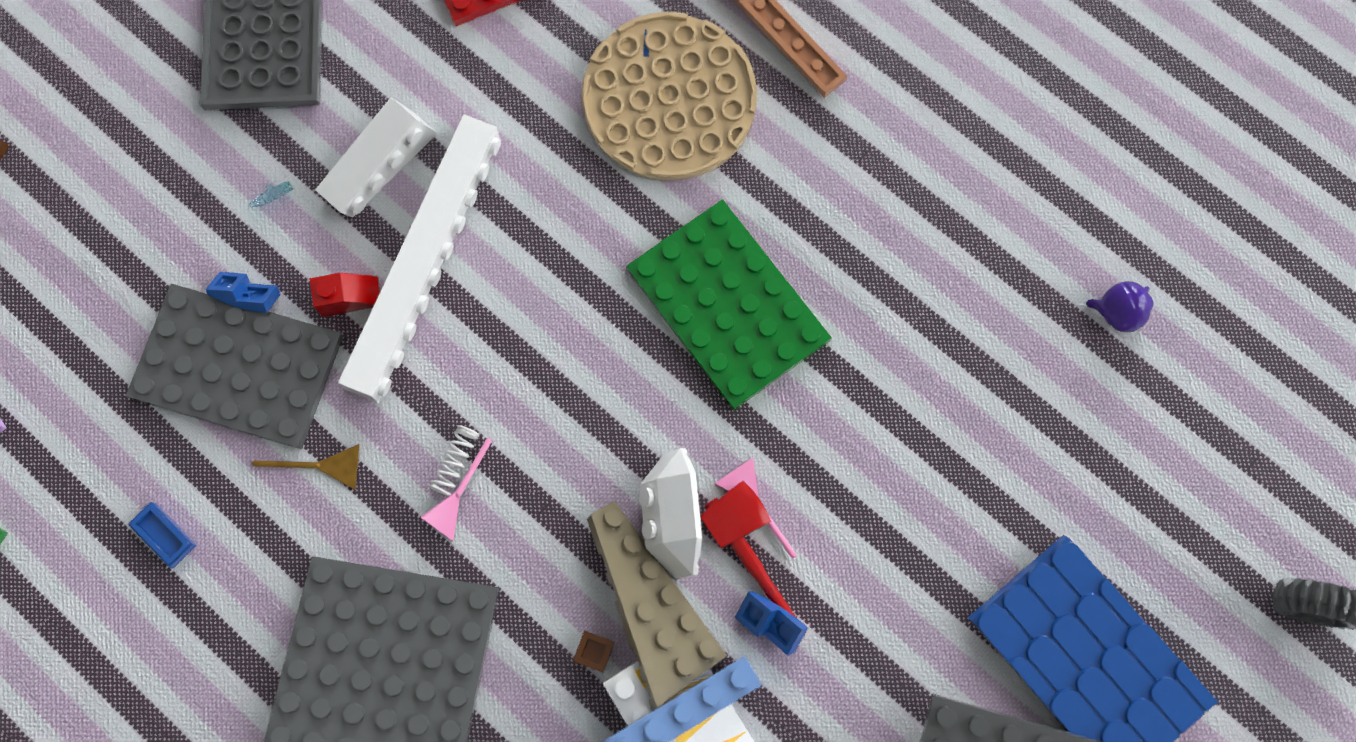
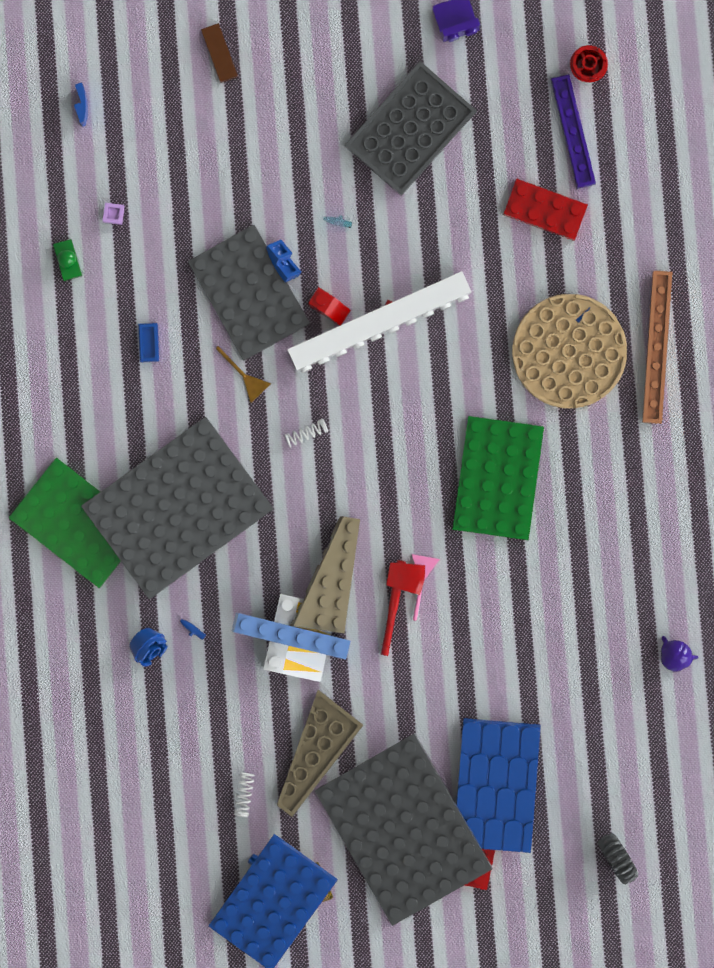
camera: 40 degrees right, 10 degrees up
(375, 158) = (401, 252): white wedge -> none
(444, 515) = (278, 454): bright pink piece -> none
(593, 651) = (289, 576): reddish brown plate -> none
(672, 514) = (379, 549): white wedge -> none
(770, 620) = (376, 634): blue slope -> none

